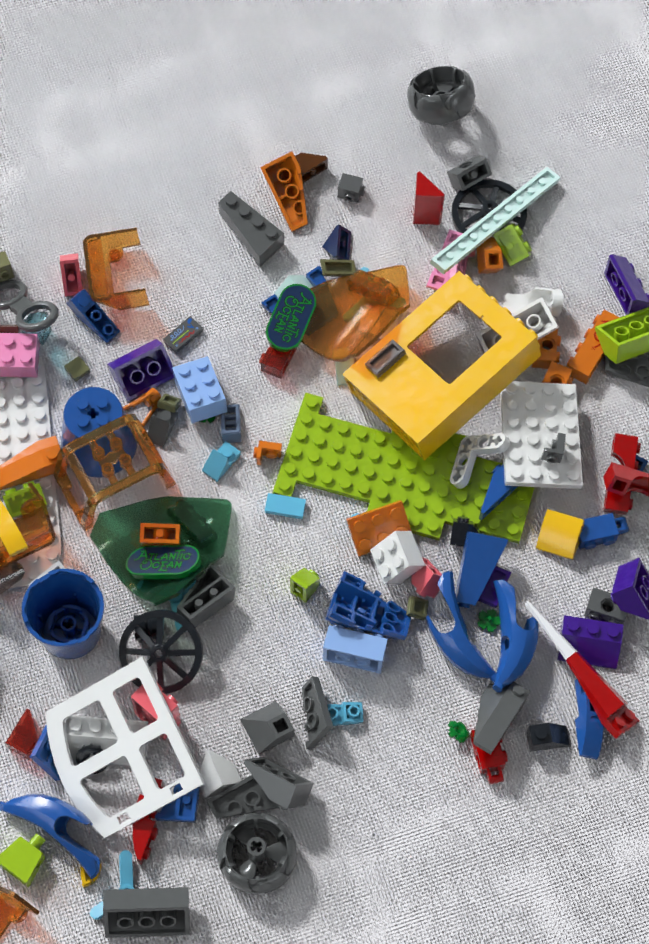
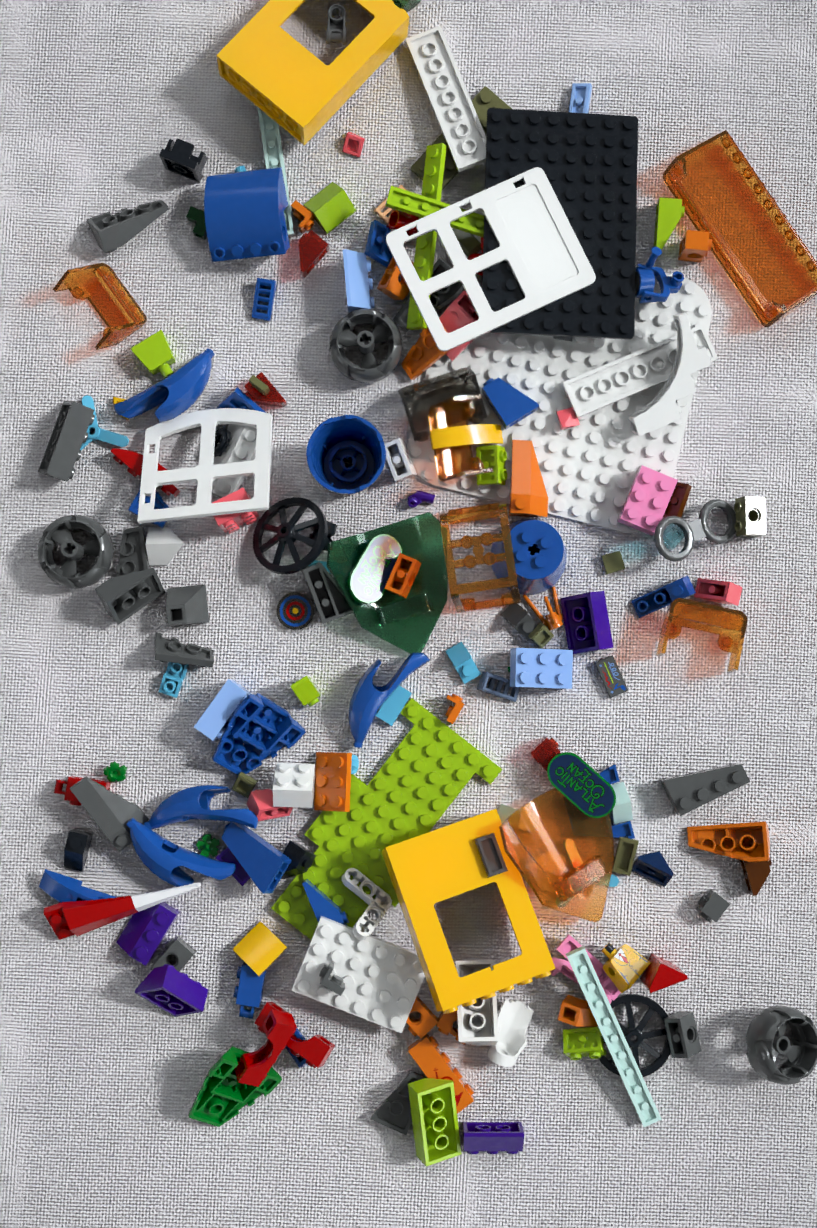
camera: 115 degrees right, 20 degrees up
(20, 734) = (259, 385): none -> olive tile
(77, 555) = (418, 497): none -> dark purple arm
(232, 626) = (295, 611): none -> tile
(281, 522) = (368, 697): none -> blue piece
(433, 234) = (623, 965): none -> yellow torso

